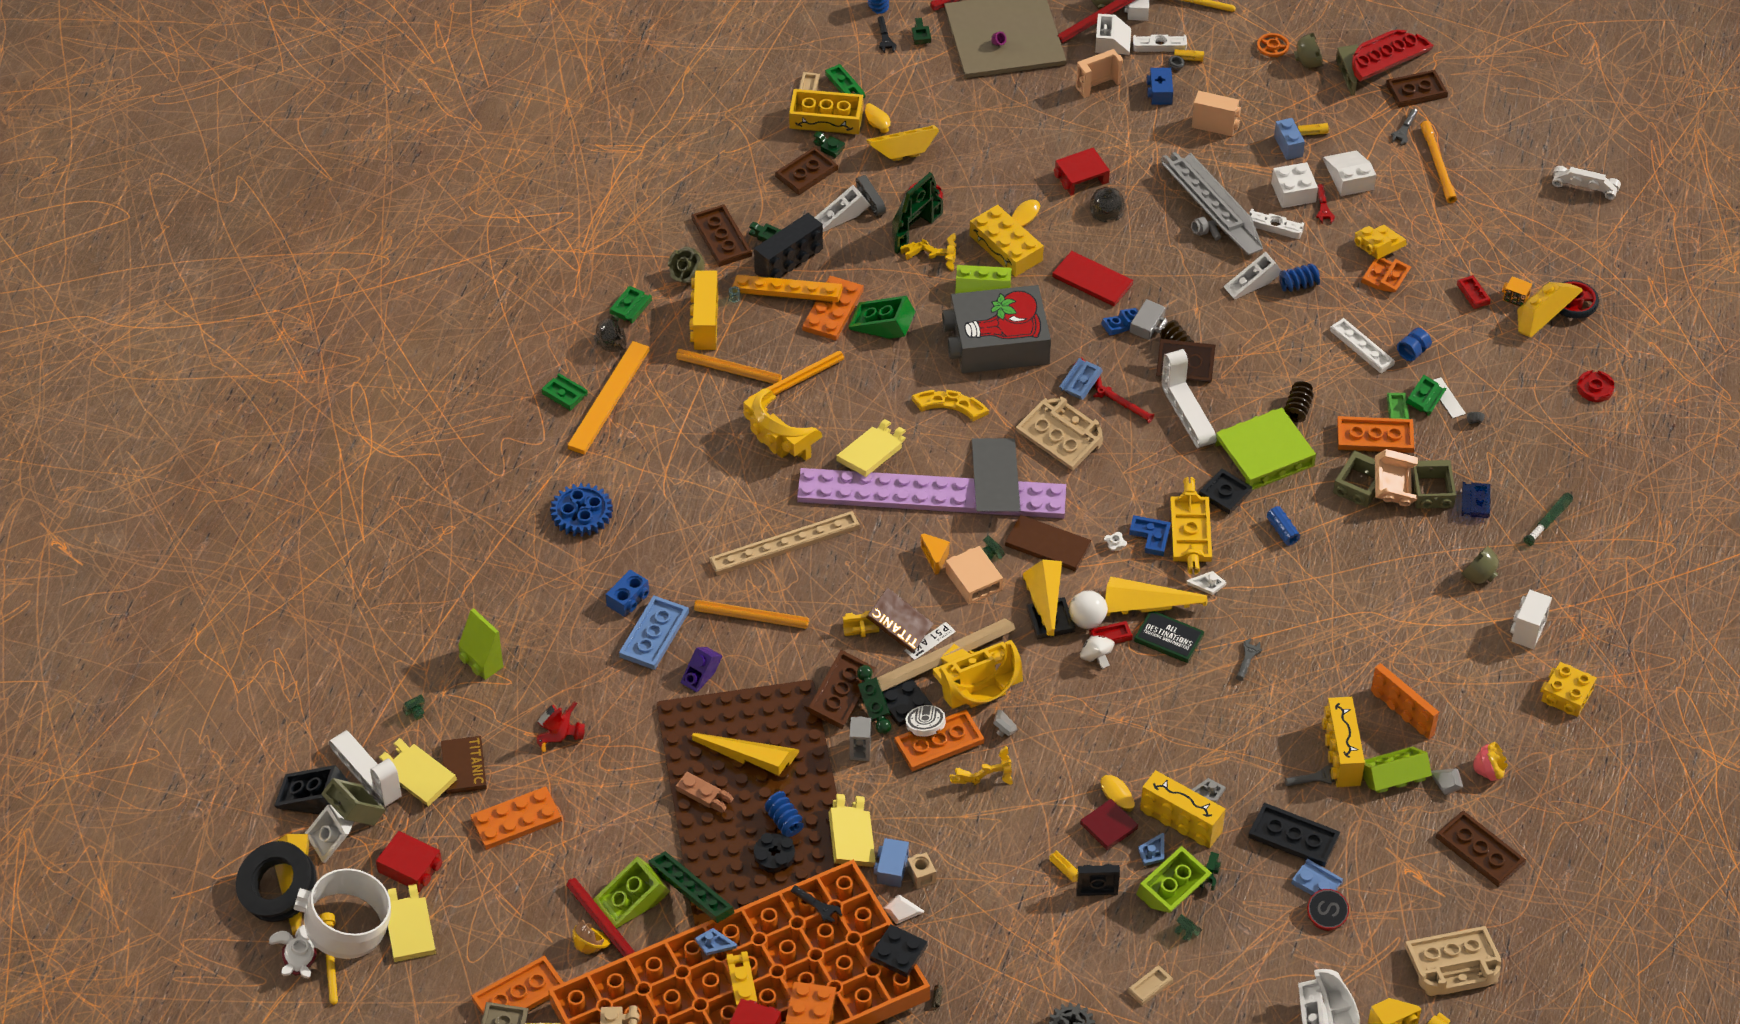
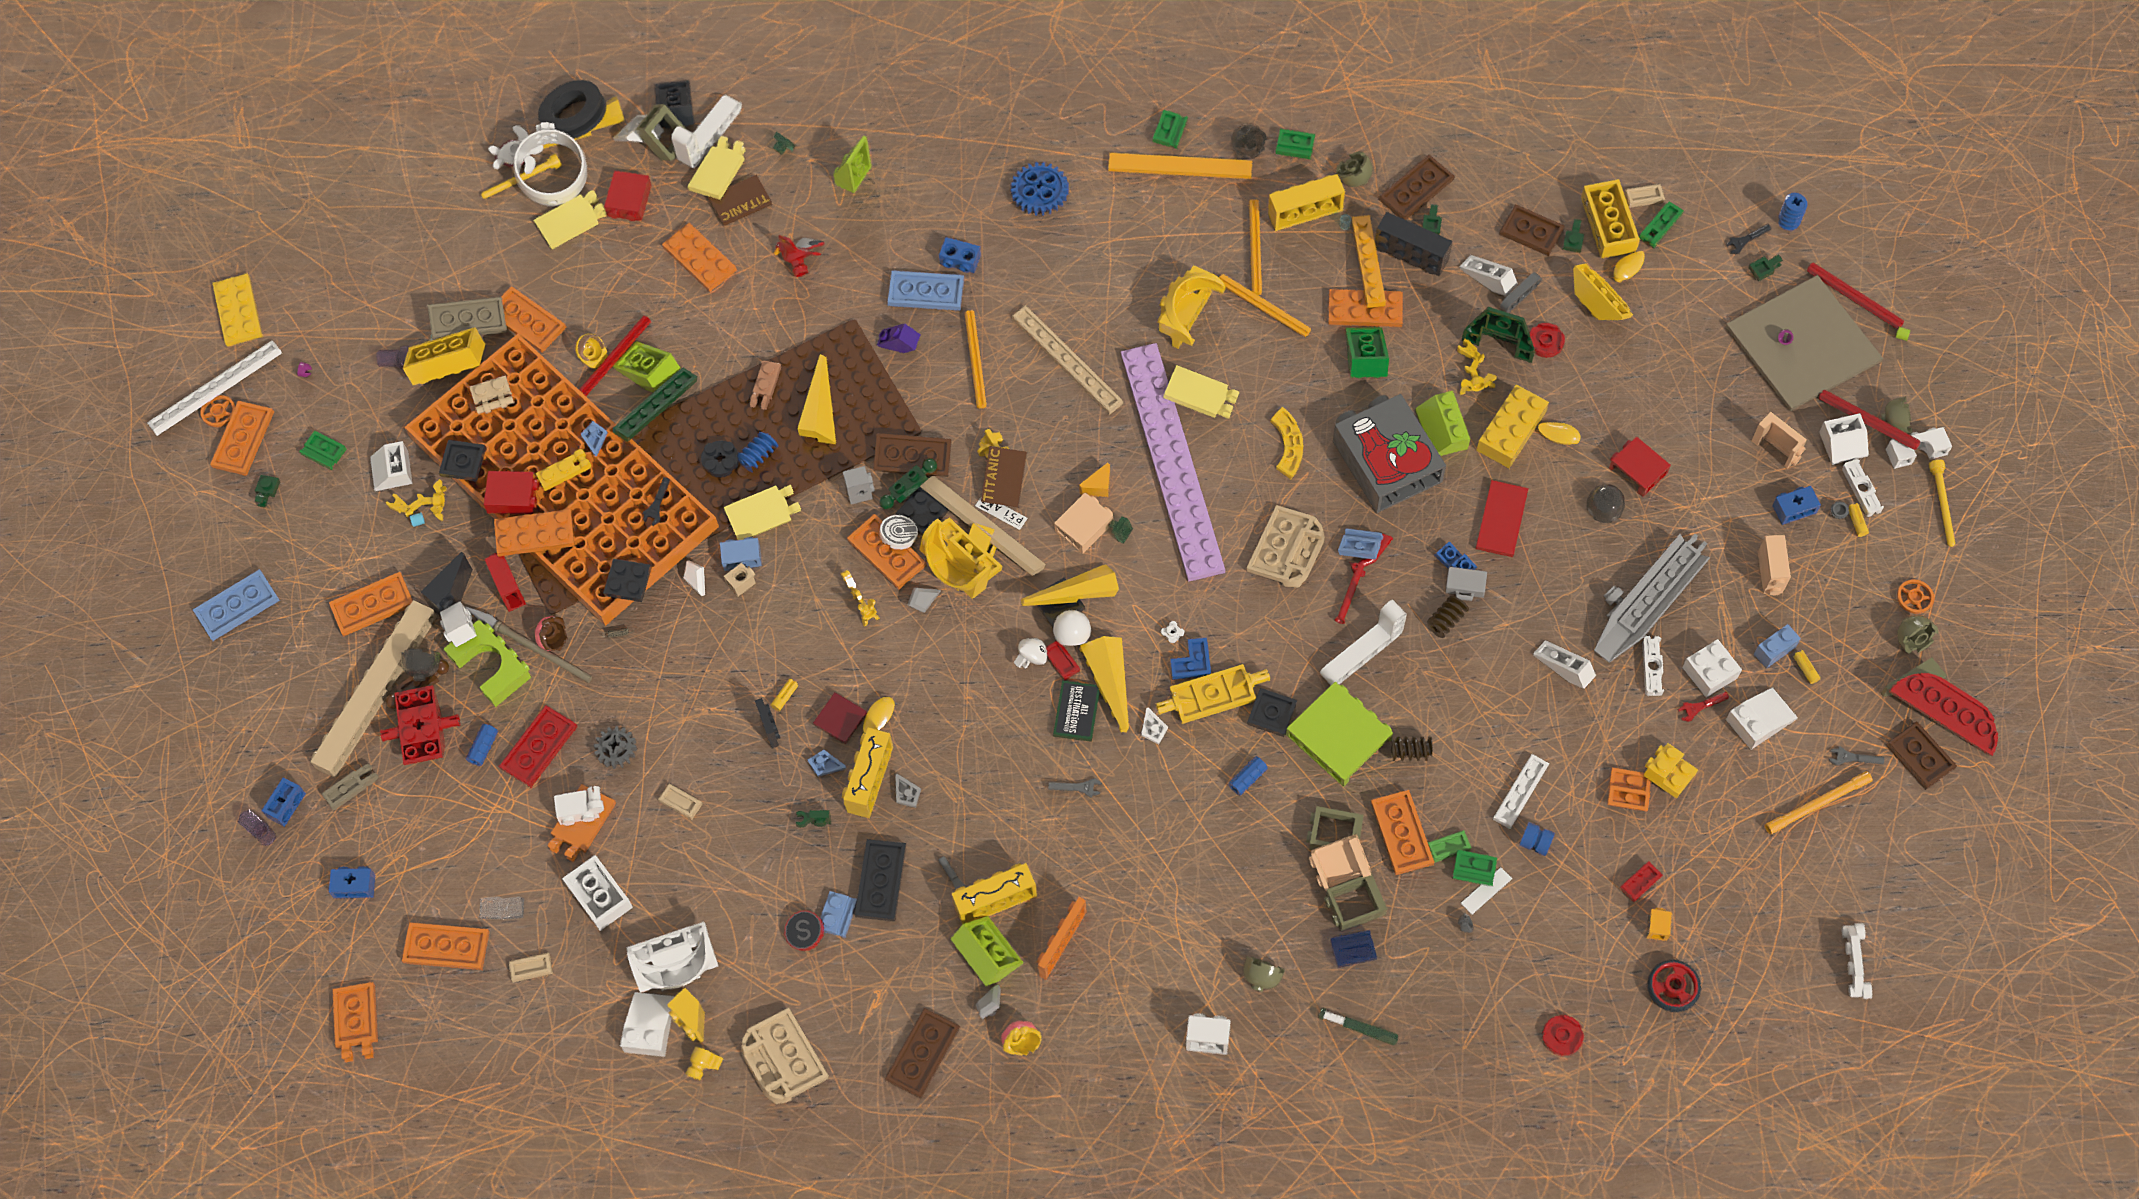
camera: 75 degrees right, 15 degrees up
(995, 474) = (1210, 505): dark grey sticker -> none
(1048, 542) = (1149, 575): reddish brown tile -> none
(1173, 881) = (786, 787): lime slope -> none
(1187, 925) = (749, 815): clear green tile -> none
(1199, 357) = (1422, 630): reddish brown tile -> none
(1298, 276) = (1582, 708): blue piece -> none
(1544, 306) = (1645, 955): yellow wedge -> none
(1568, 689) = (1139, 1092): yellow brick -> none

